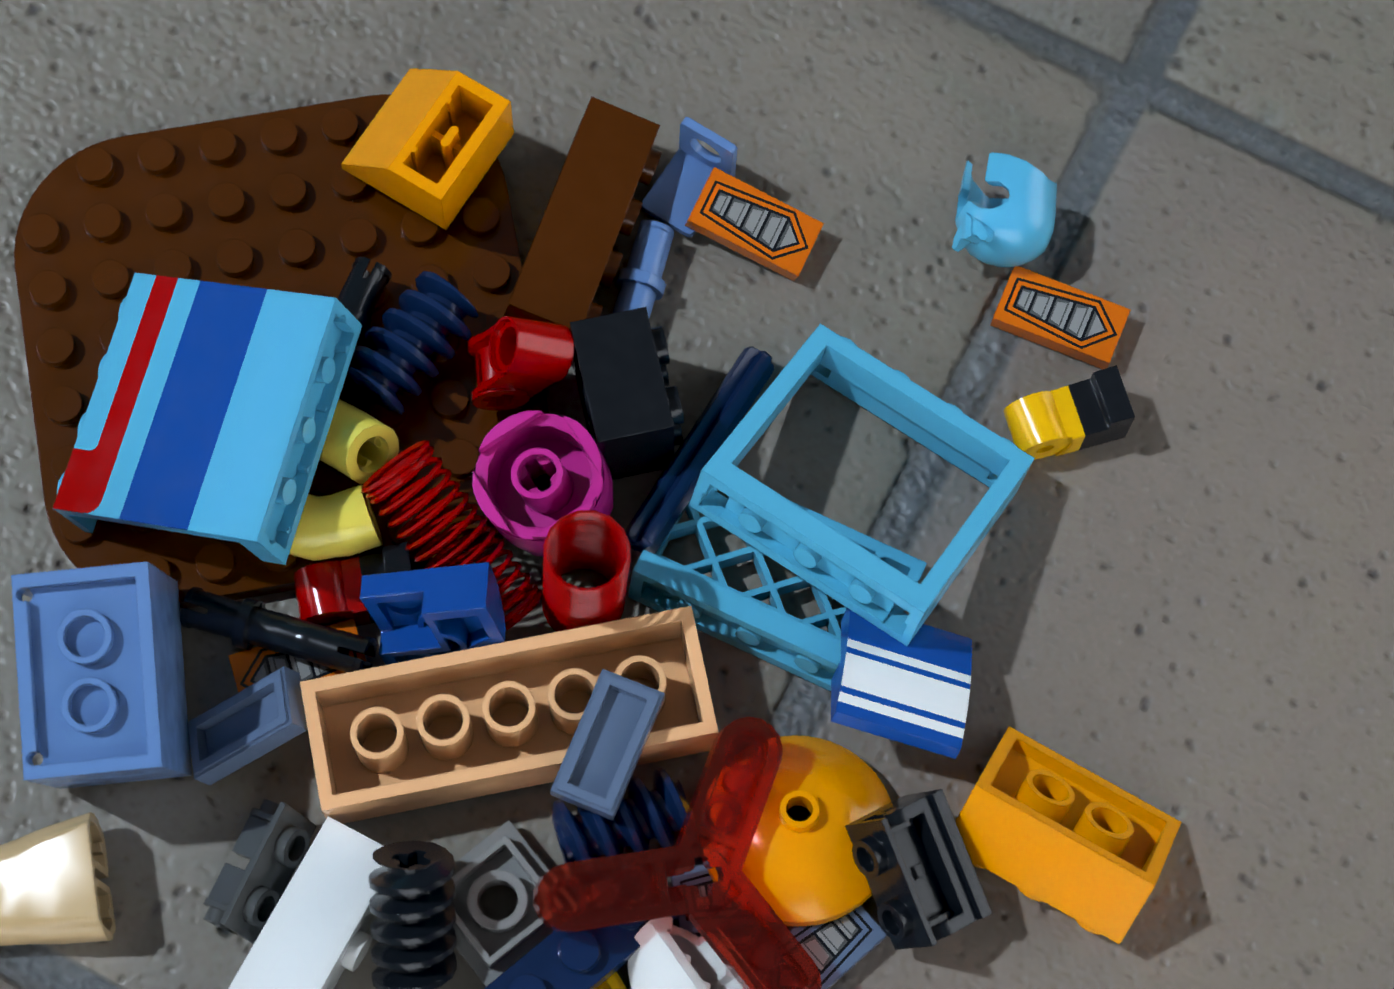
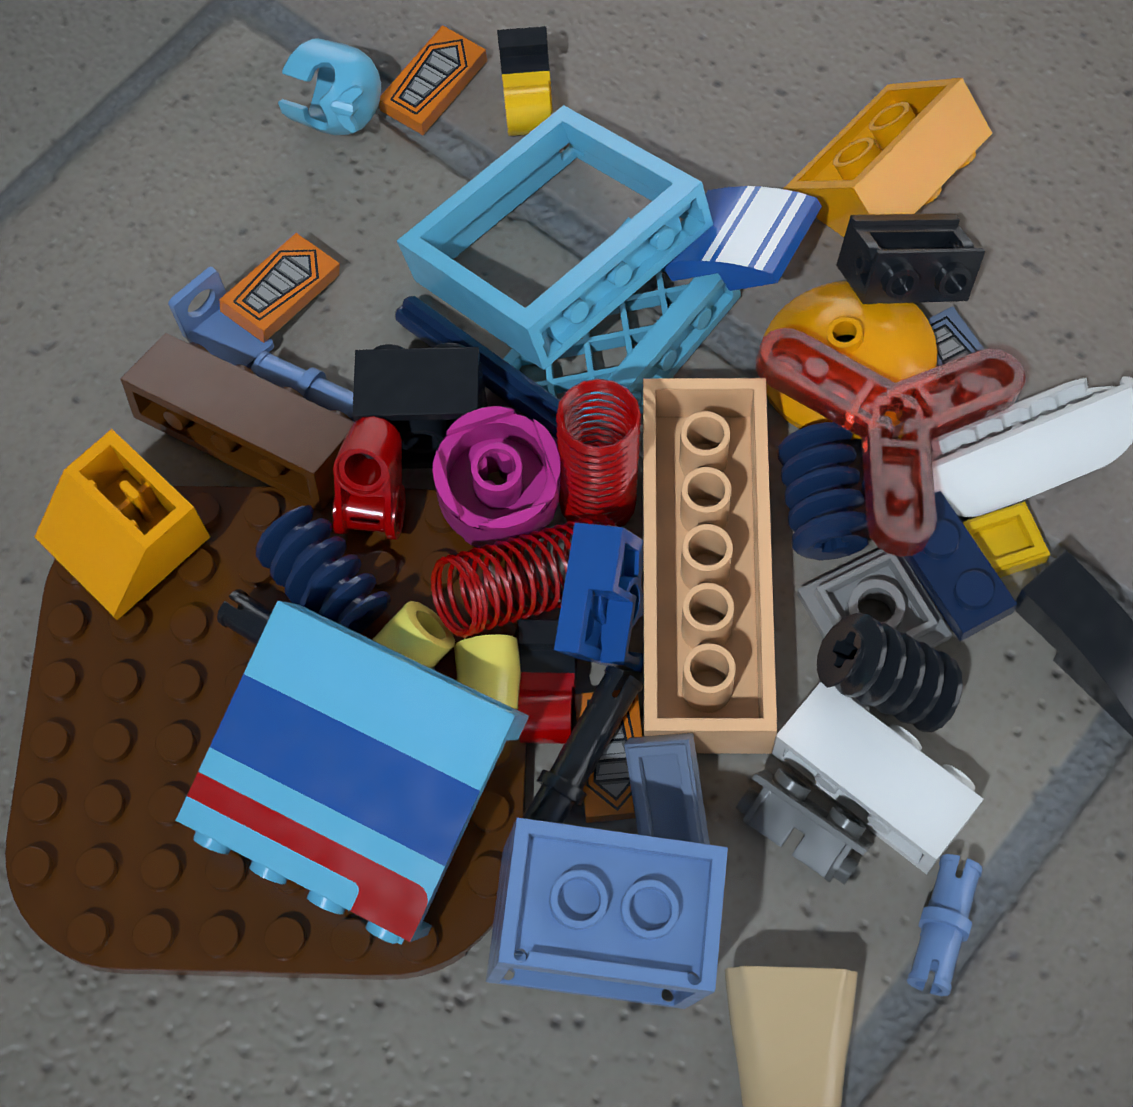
camera: 70 degrees left, 5 degrees down
(607, 744) = (763, 465): sand blue tile -> none

